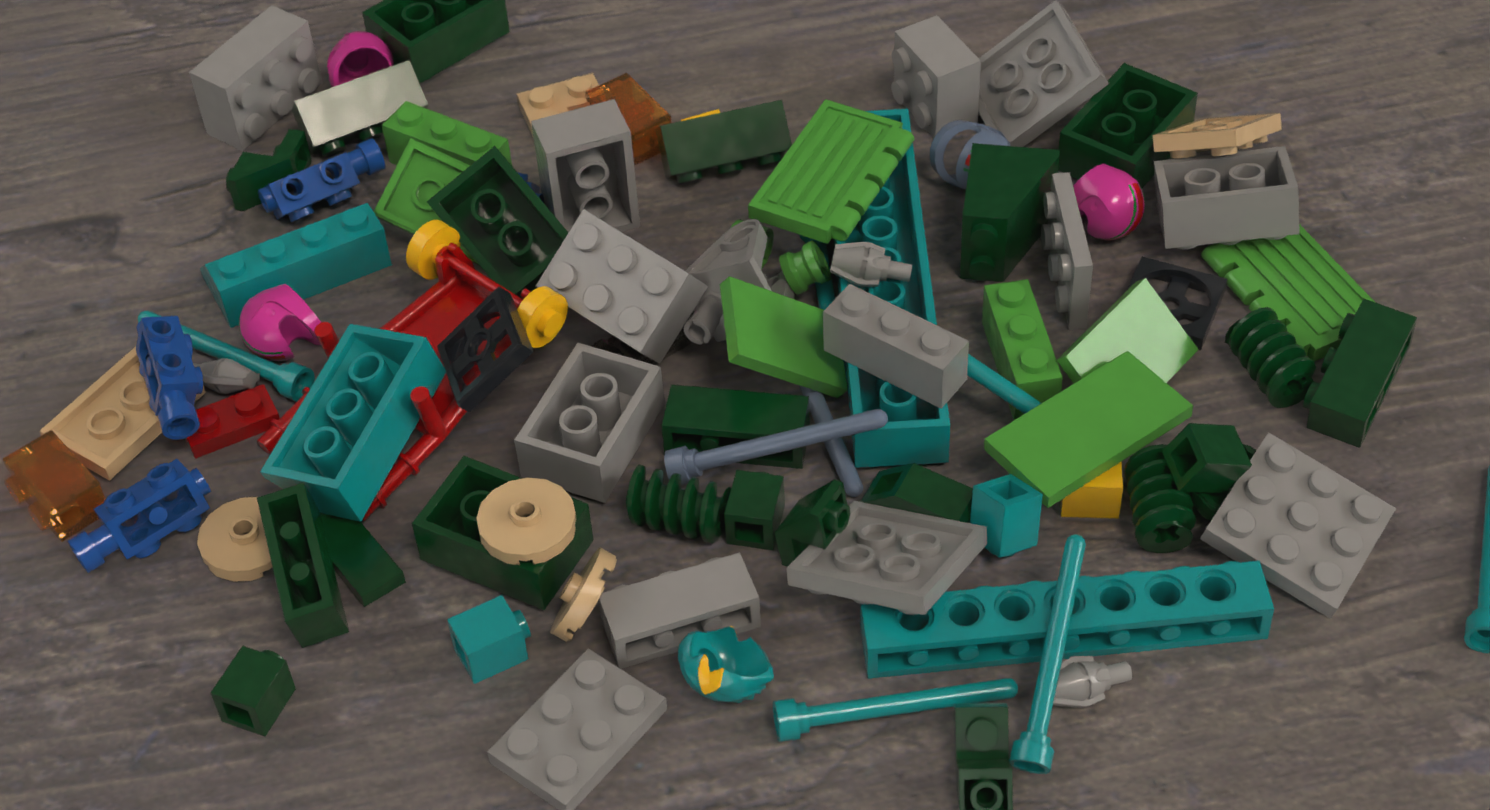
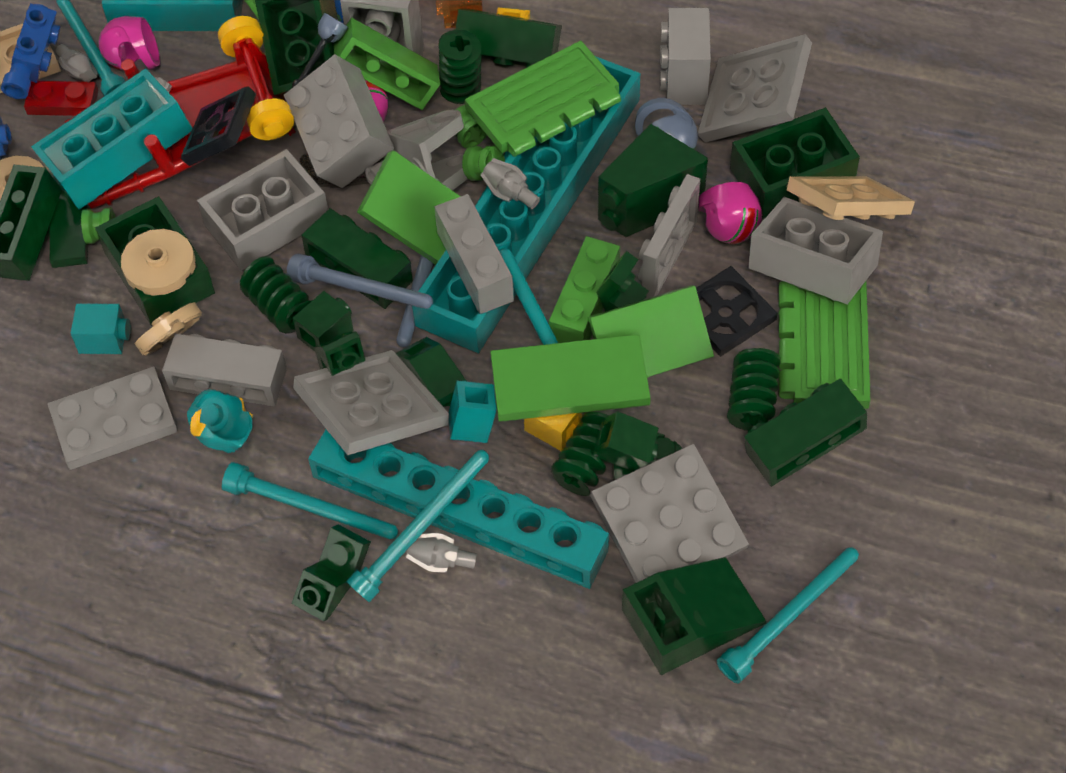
camera: 30 degrees right, 10 degrees up
(394, 529) = (92, 219): none -> bright green wheel
(549, 192) = (330, 31): none -> hinge
(630, 210) = (389, 64): none -> bright green brick
(699, 186) = (459, 65): none -> dark green piece
(1065, 311) = (619, 285): none -> dark green slope
(1398, 606) = (689, 611): none -> dark green slope

